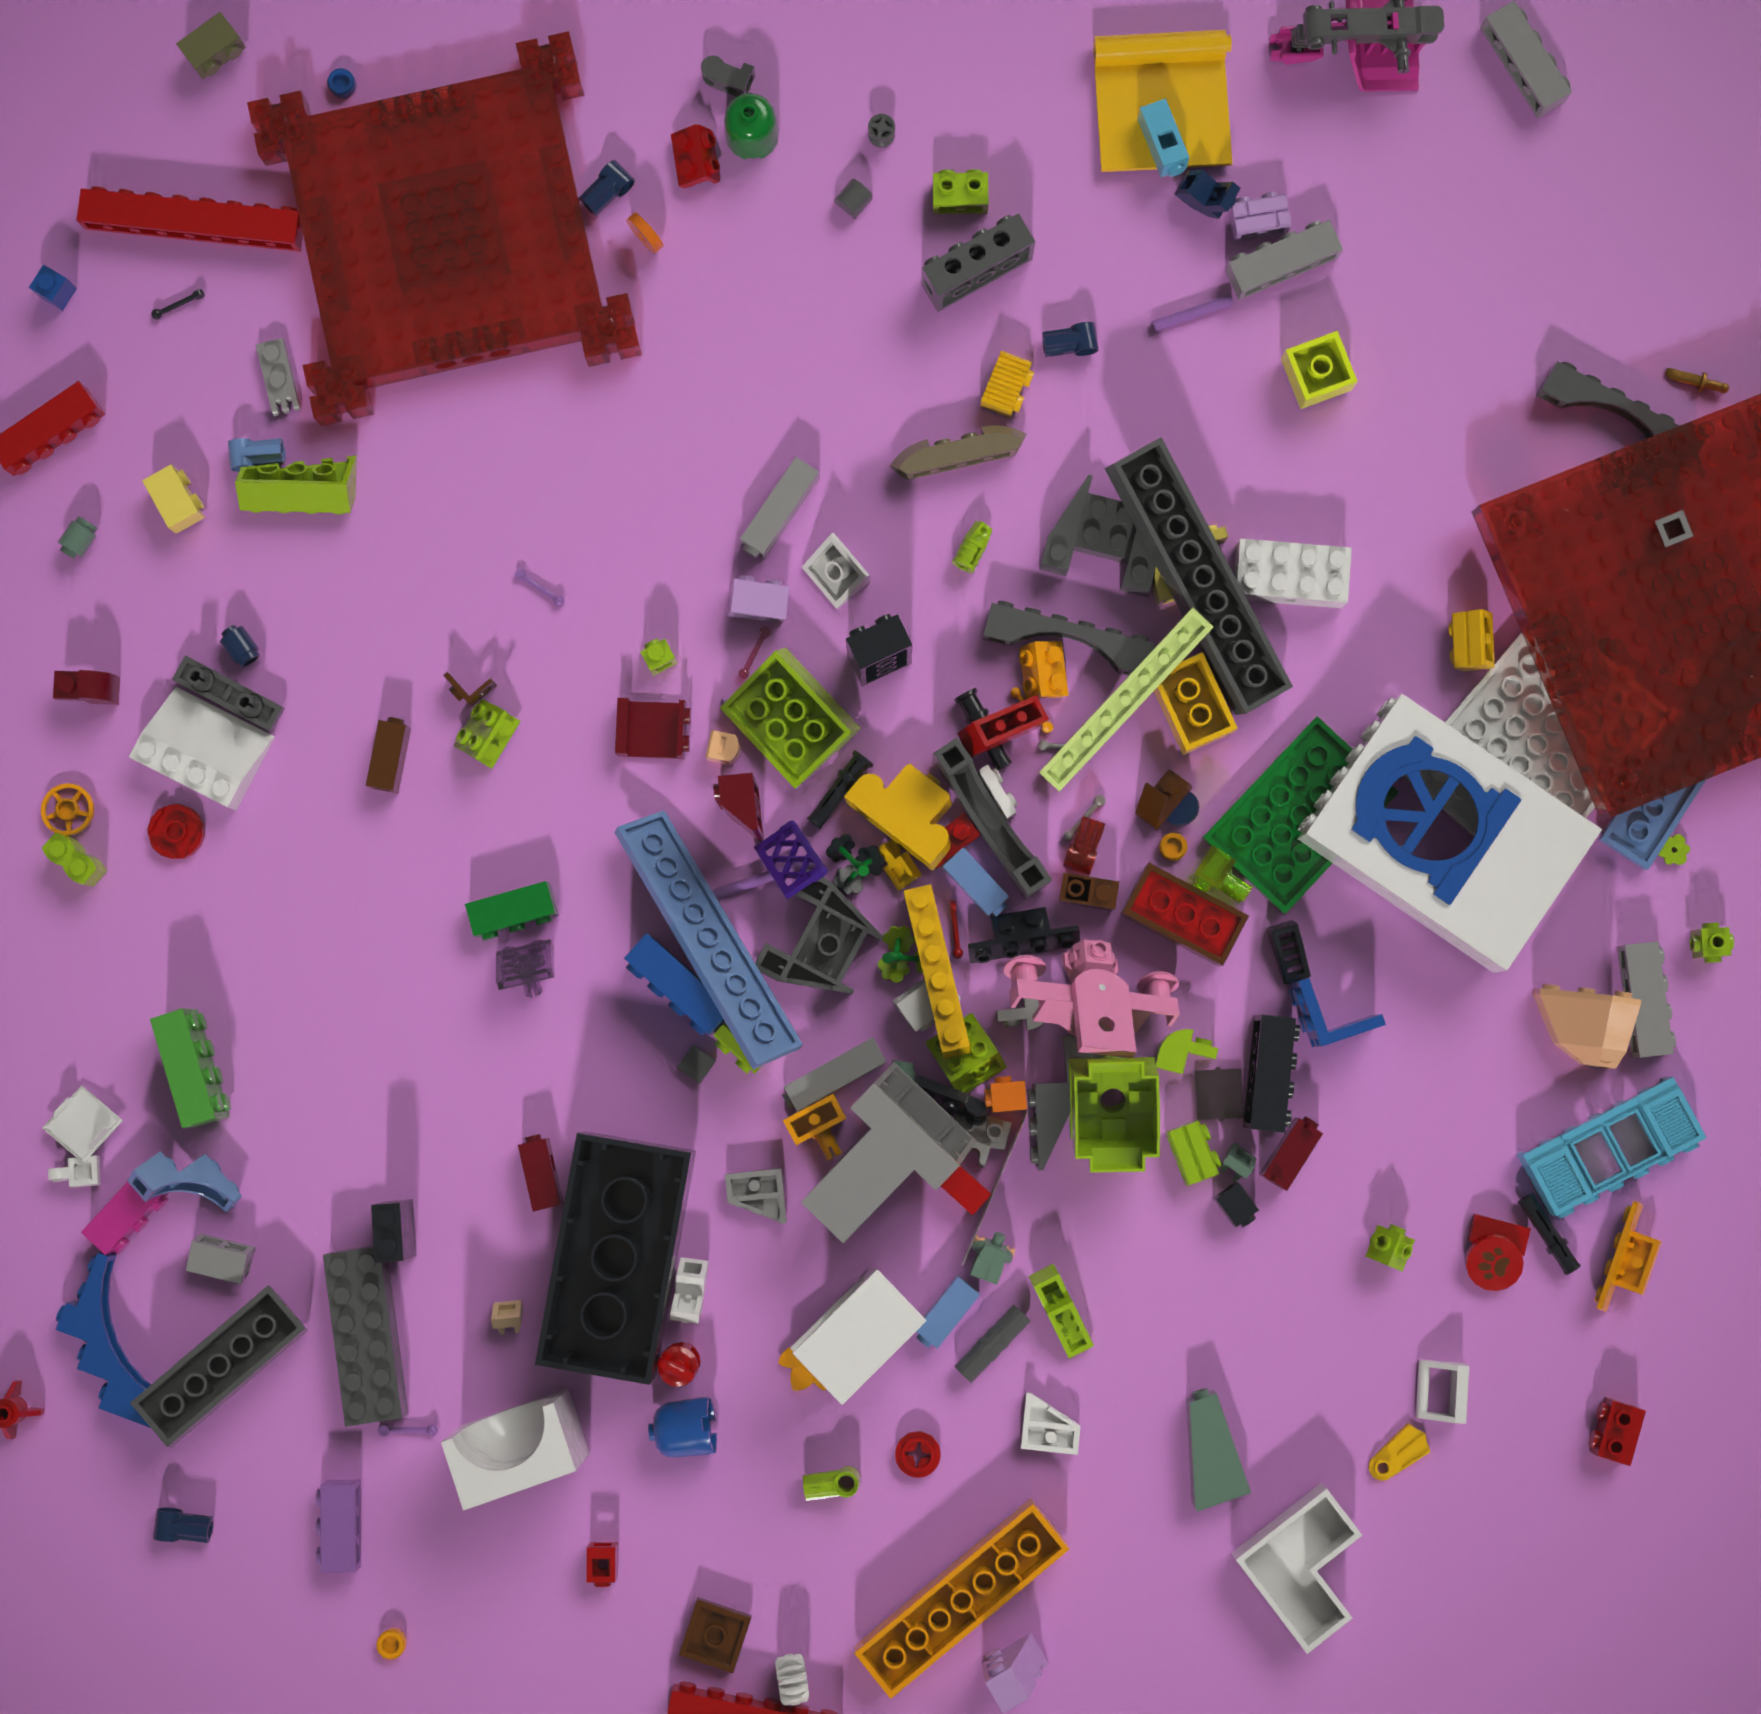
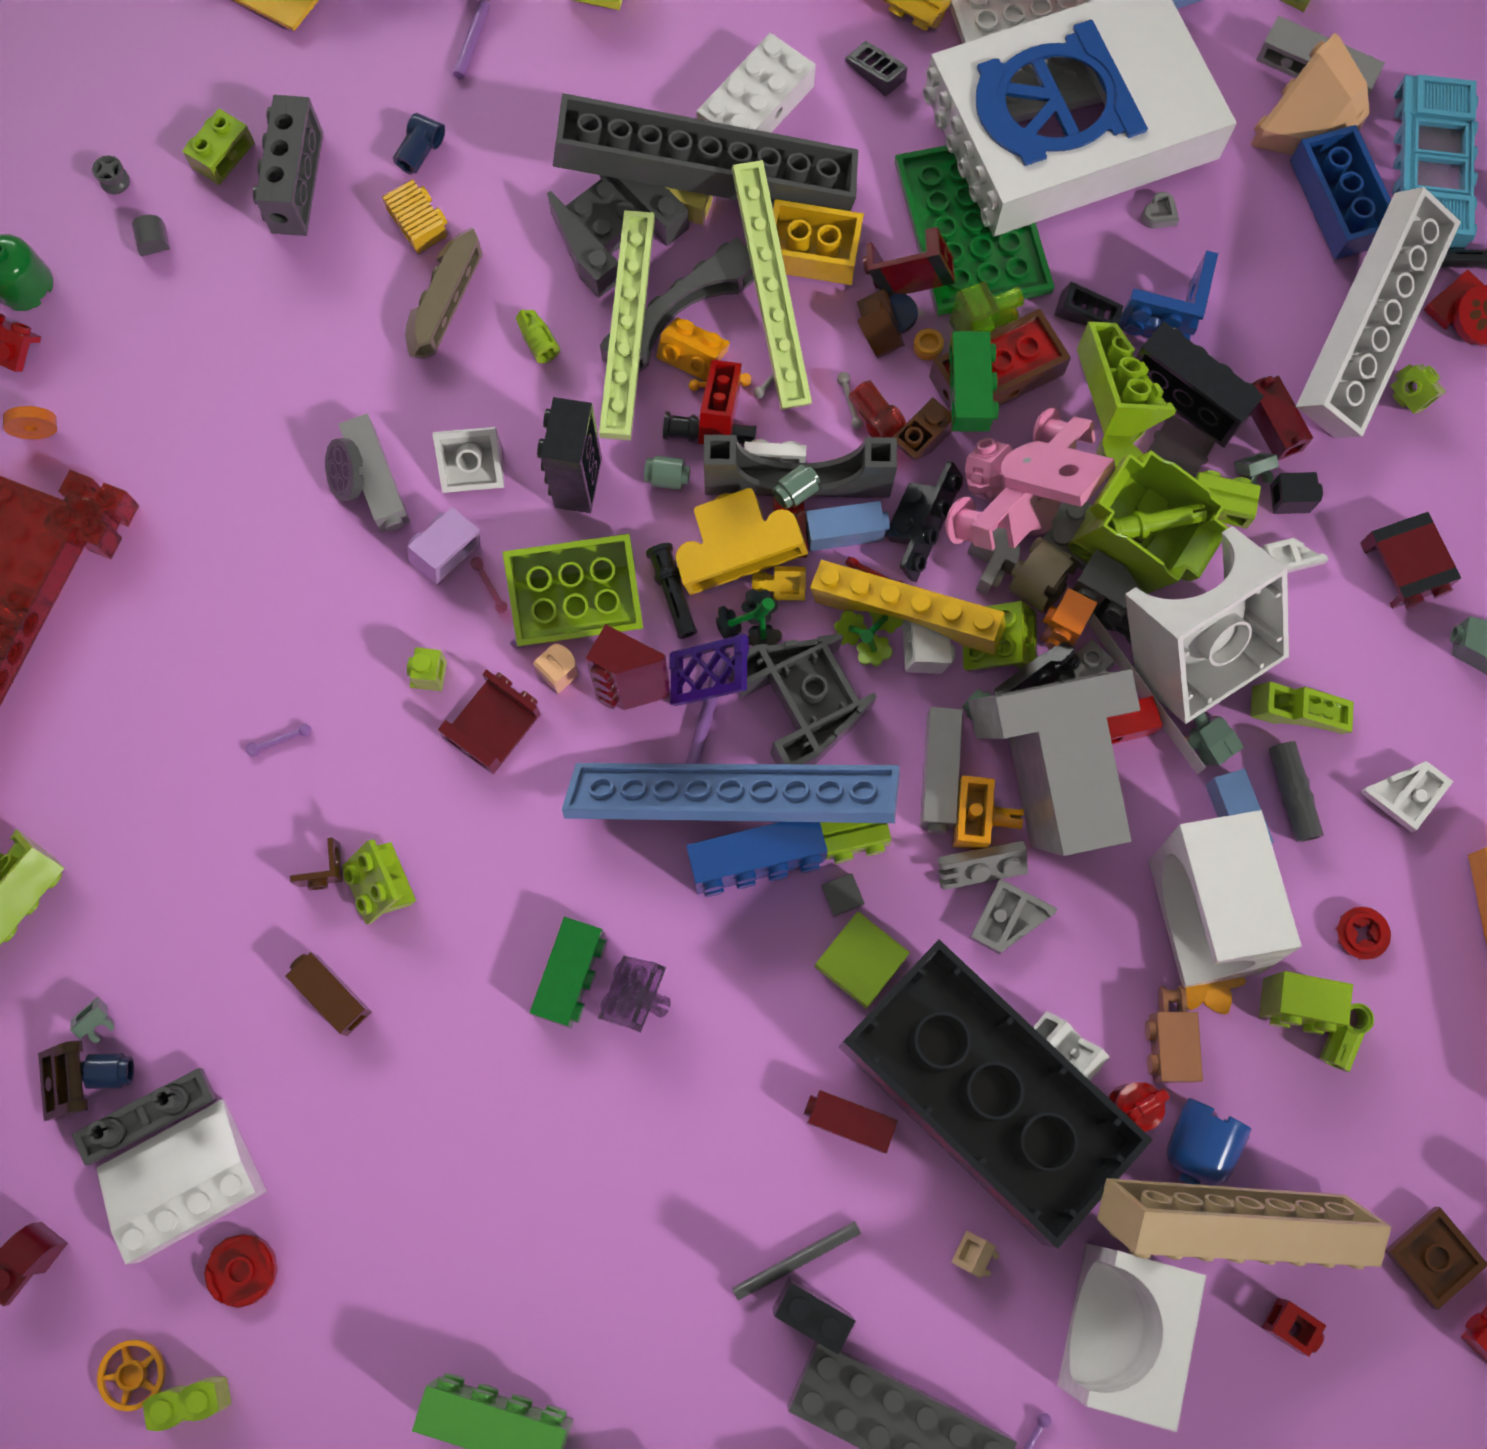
camera: 60 degrees left, 10 degrees down
(212, 622) = (61, 1081): none -> dark brown plate
(266, 608) = (89, 1018): none -> sand green tile
(425, 1197) = (796, 1261): none -> dark grey bar
(637, 1481) = (1242, 1224): none -> tan brick
(658, 1108) = (861, 959): none -> lime slope
(745, 1364) = (1174, 1040): none -> nougat brick
(764, 486) = (342, 469): none -> tile
(782, 1150) = (983, 865): none -> light grey hinge
(832, 1439) = (1305, 1001): none -> lime brick
(928, 721) = (666, 472): none -> sand green brick
(977, 827) = (796, 487): none -> sand green brick
(1019, 613) = (627, 326): none -> yellowish green plate
(1033, 1054) = (1043, 574): none -> dark tan brick
(1054, 1218) = (1215, 642): none -> white piece
(1105, 1103) = (1140, 524): none -> lime pin
(1145, 904) = (972, 381): none -> green brick
(1183, 1231) = (1294, 554): none -> white tile
(1223, 1019) = (1119, 382): none -> lime wedge
(1233, 812) = (912, 272): none -> dark red panel
(1239, 1325) = (1414, 559): none -> dark red panel
(1386, 668) = (878, 79): none -> black slope
(1416, 954) = (1160, 212): none -> light grey tile
(1425, 1179) = (1378, 313): none -> white brick
(1529, 1091) = (1342, 189): none -> blue brick

